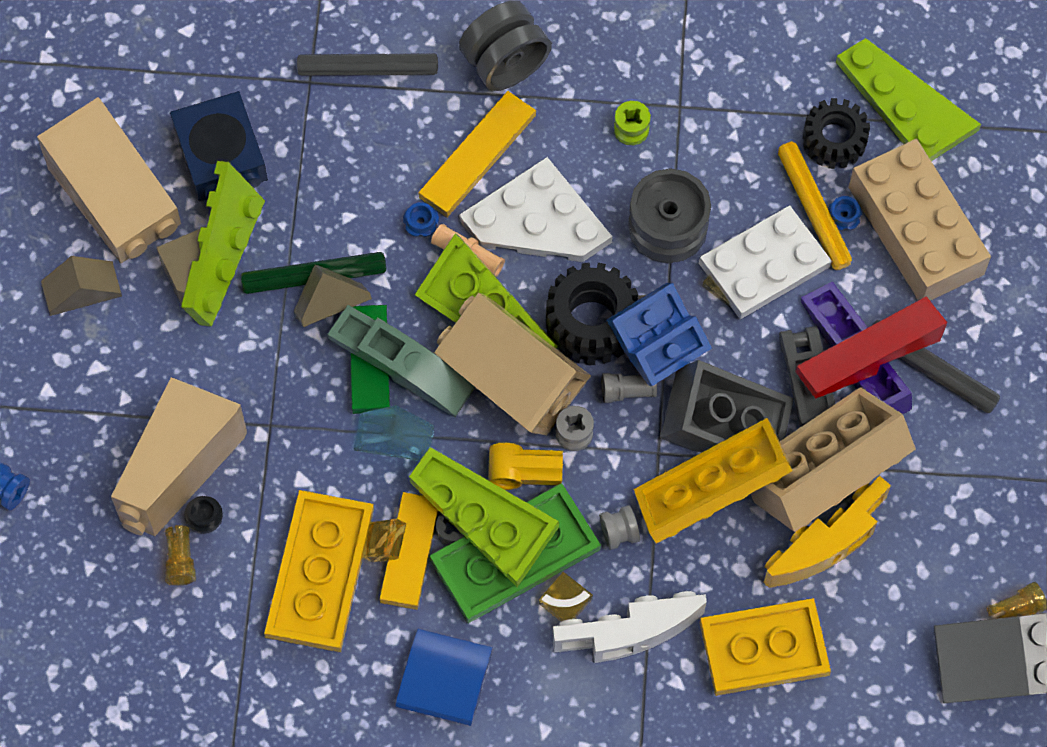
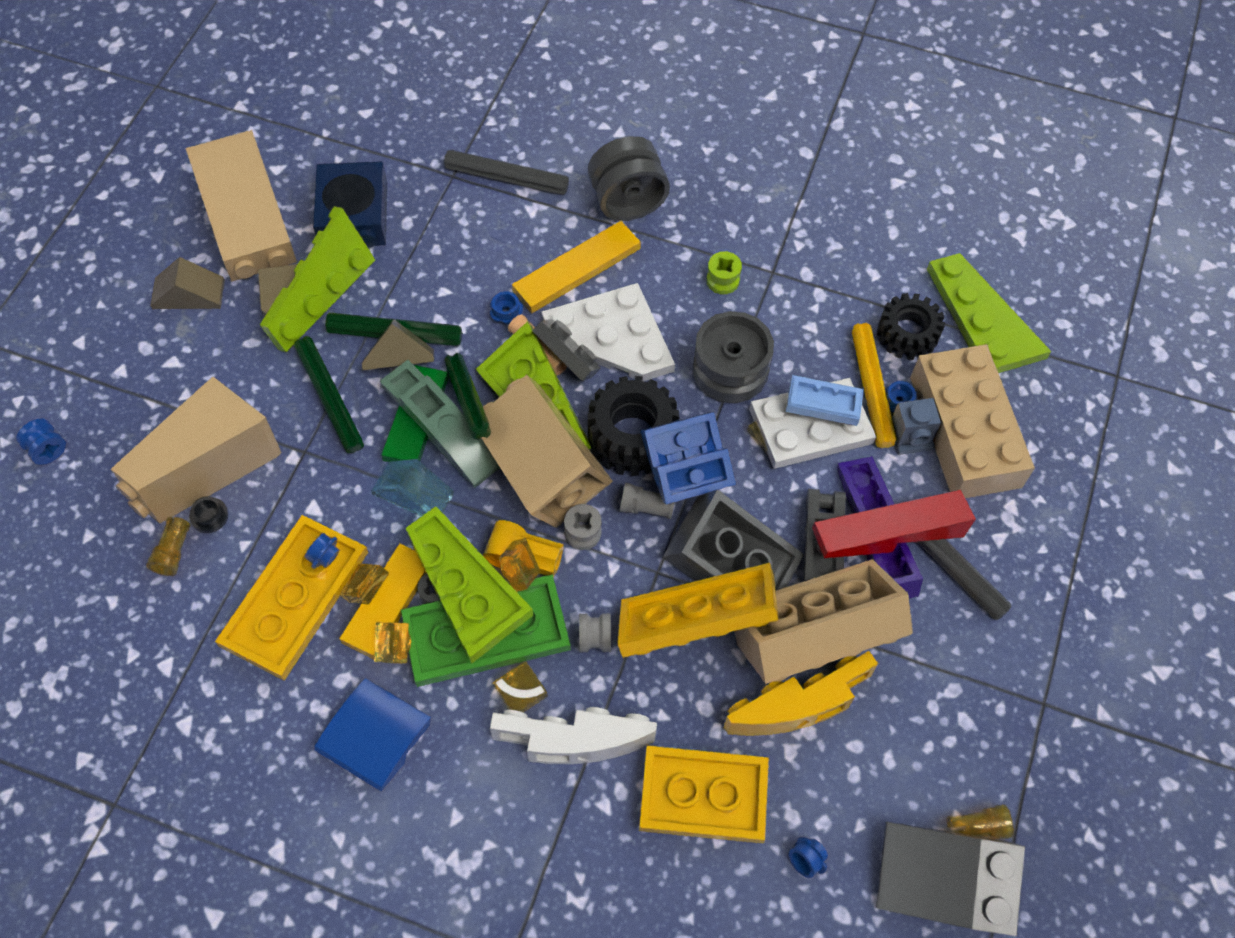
camera: 15 degrees right, 5 degrees down
(273, 359) = (329, 395): none -> dark green axle
(337, 520) = (322, 551): none -> blue plate
(421, 327) = (467, 396): none -> dark green axle
(433, 588) = (392, 642): none -> clear yellow plate
(514, 257) = (577, 358): none -> dark grey plate
(530, 482) = (519, 565): none -> clear yellow plate
(773, 239) = (824, 400): none -> light blue plate
(867, 240) = (915, 425): none -> sand blue brick
(873, 676) = (808, 857): none -> blue plate

